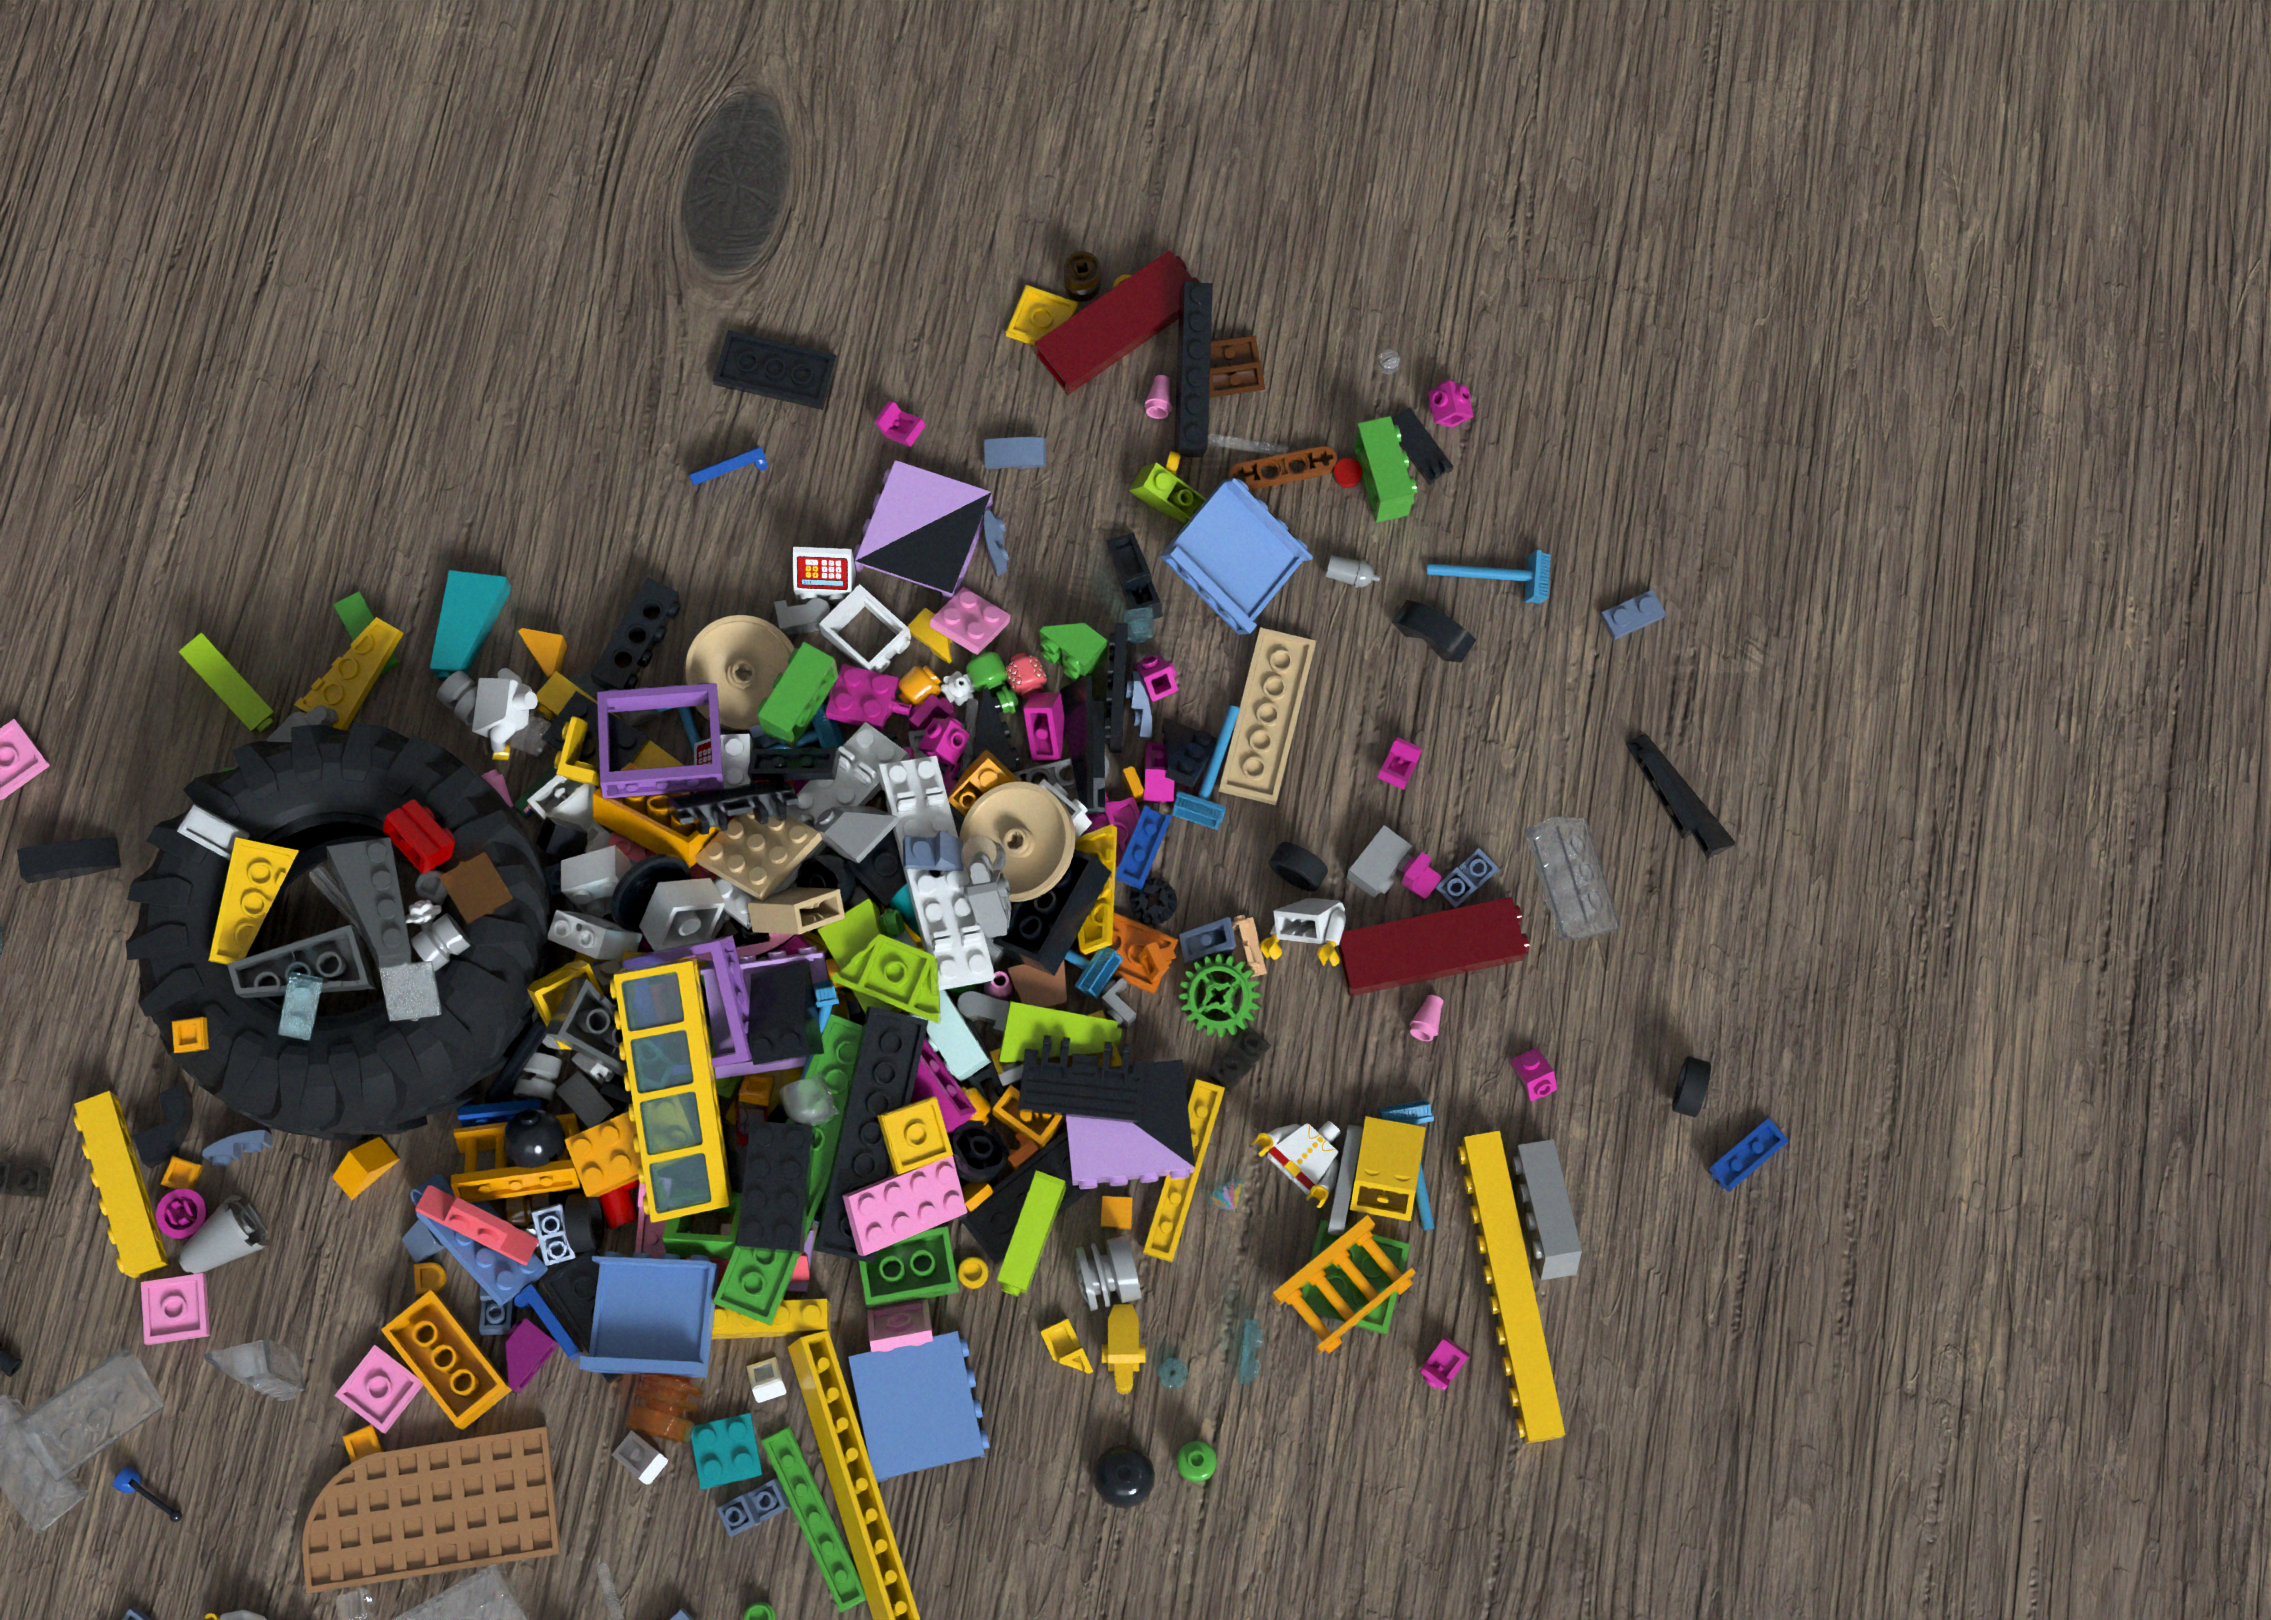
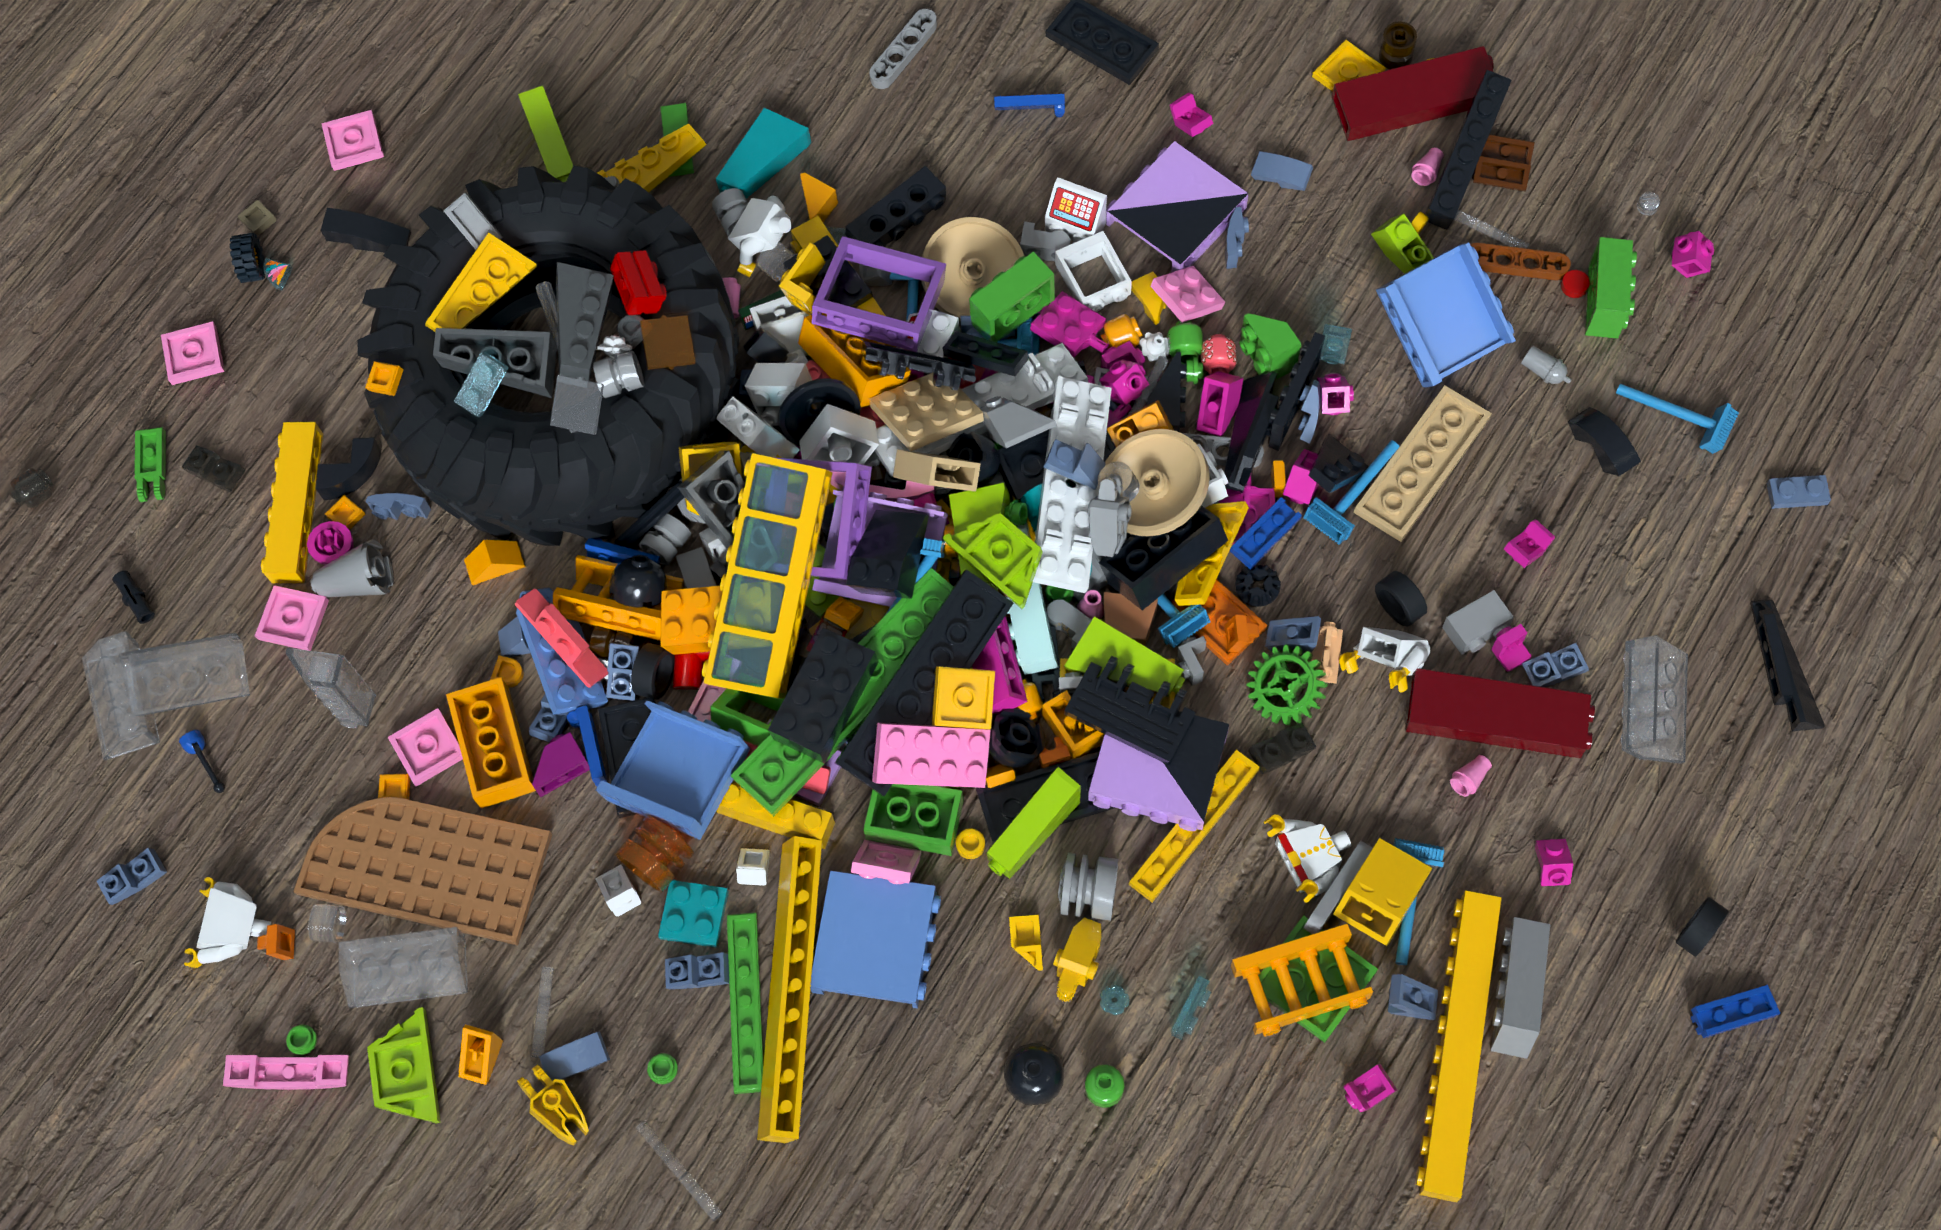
camera: 30 degrees right, 5 degrees down
(564, 448) = (900, 47): none -> light grey beam
(808, 1101) = (881, 630): clear helmet -> none
(1116, 1212) = (1119, 840): light orange tile -> none
(1134, 574) = (1348, 303): black slope -> none
(1227, 1195) = (1225, 863): clear light blue tile -> none
(1421, 447) = (1651, 284): black hinge -> none
(1451, 1260) = (1412, 998): none -> sand blue slope

